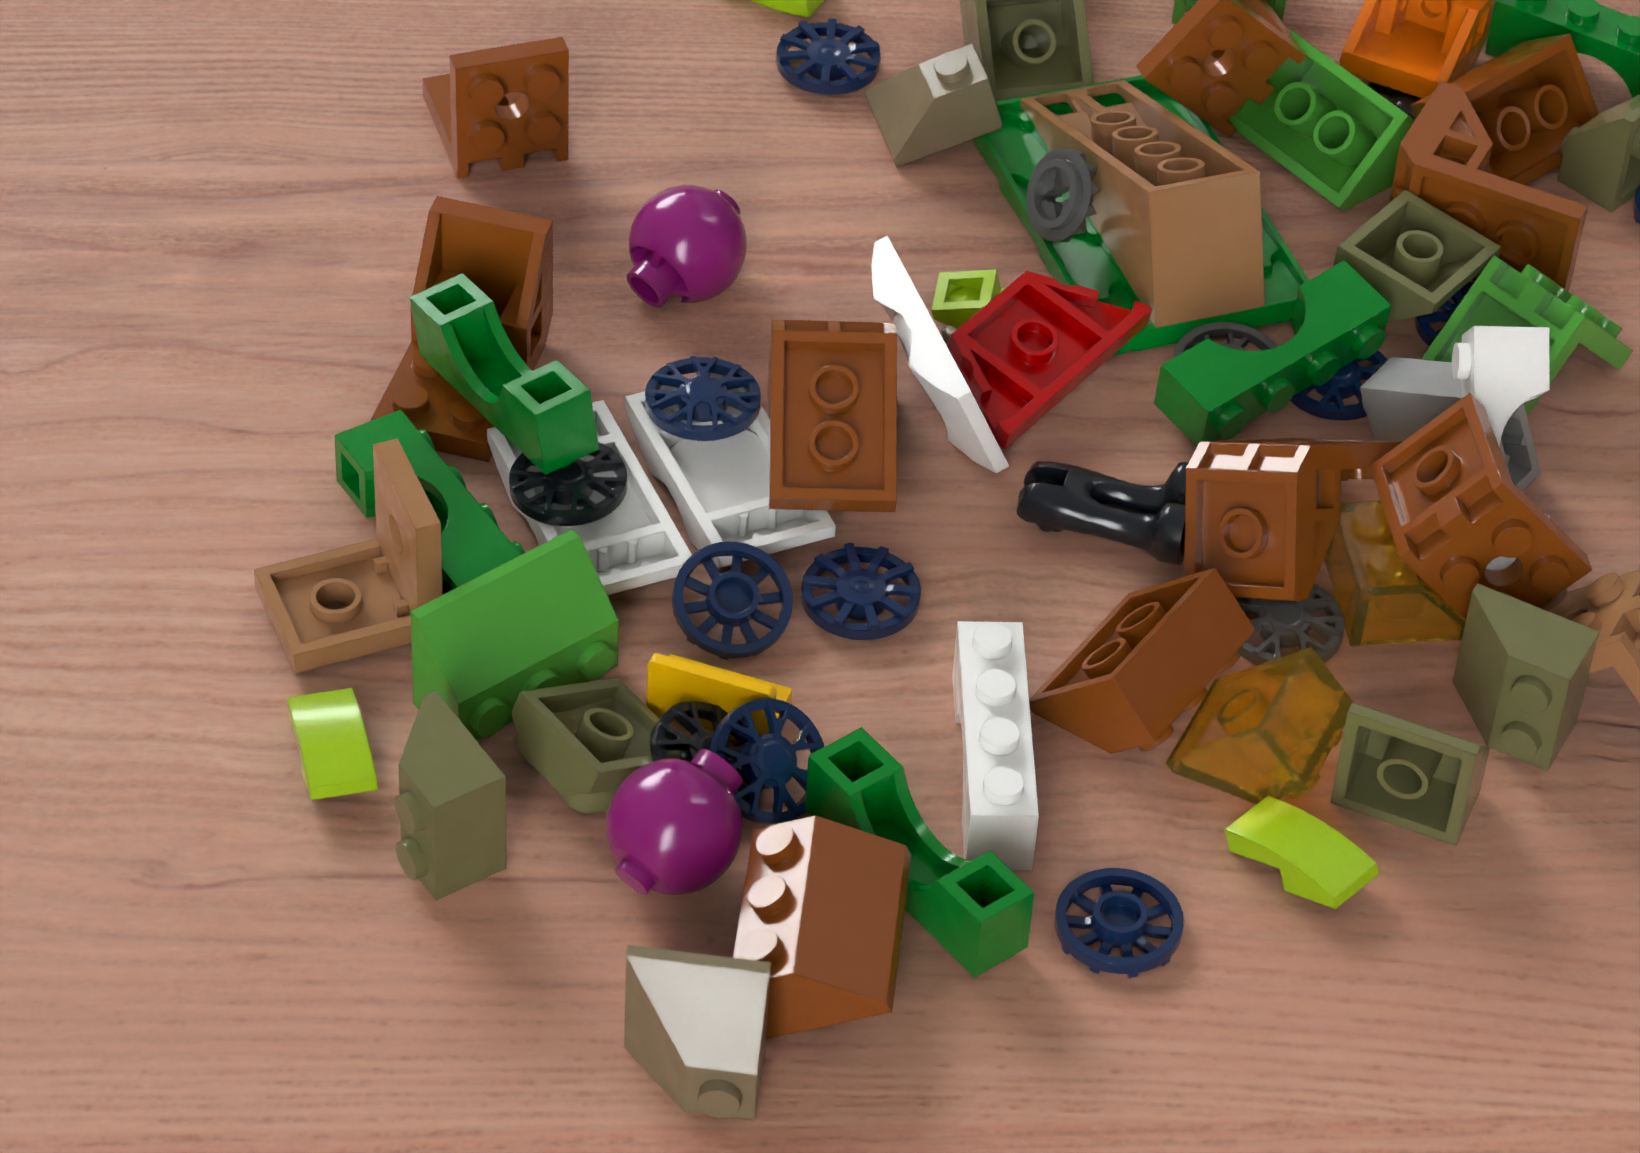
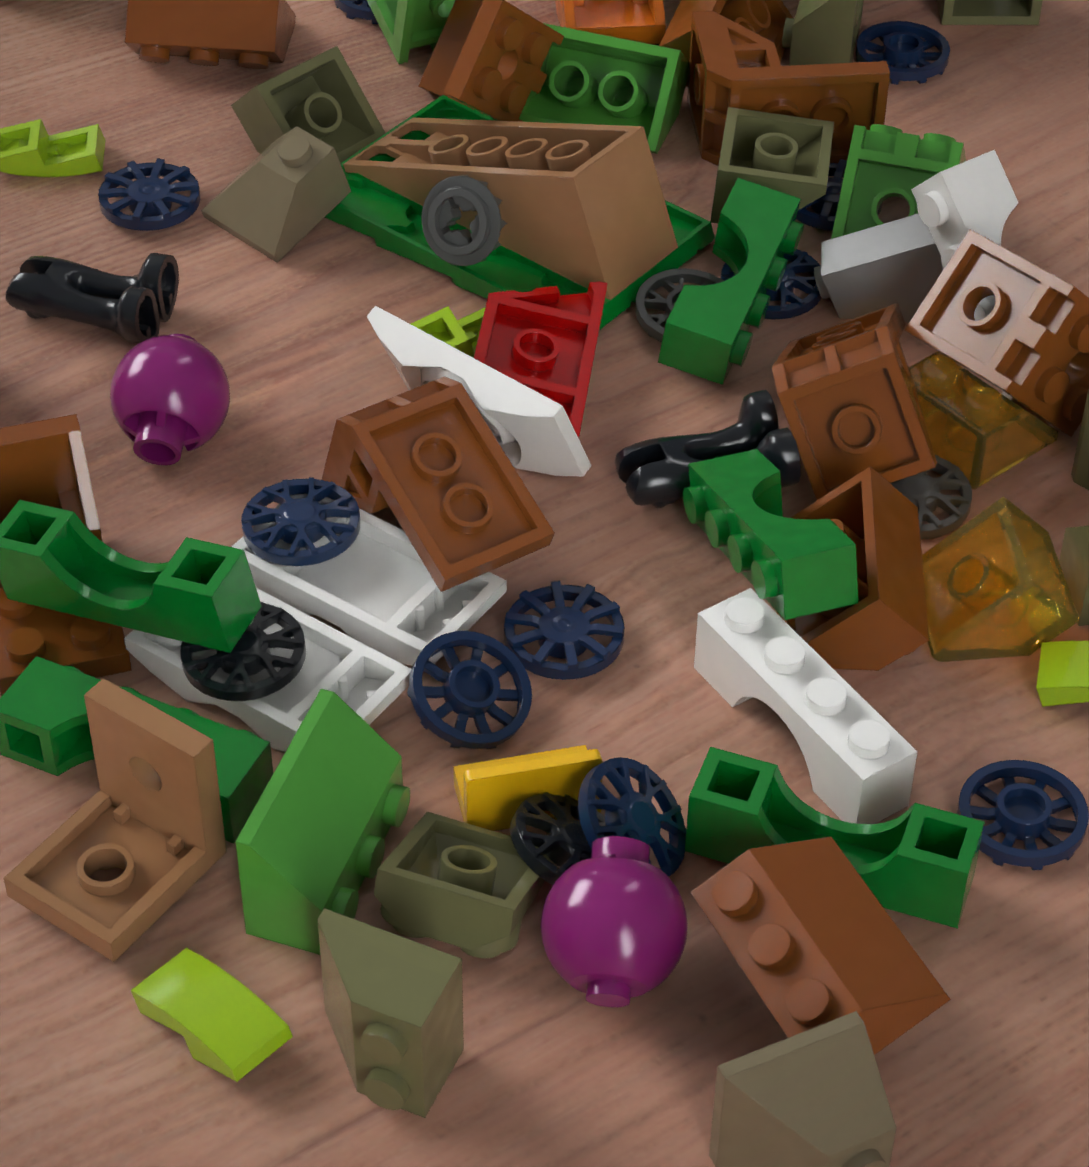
camera: 30 degrees left, 0 degrees up
(683, 112) = (94, 297): none -> black piece
(1079, 586) = (789, 561): none -> green arch

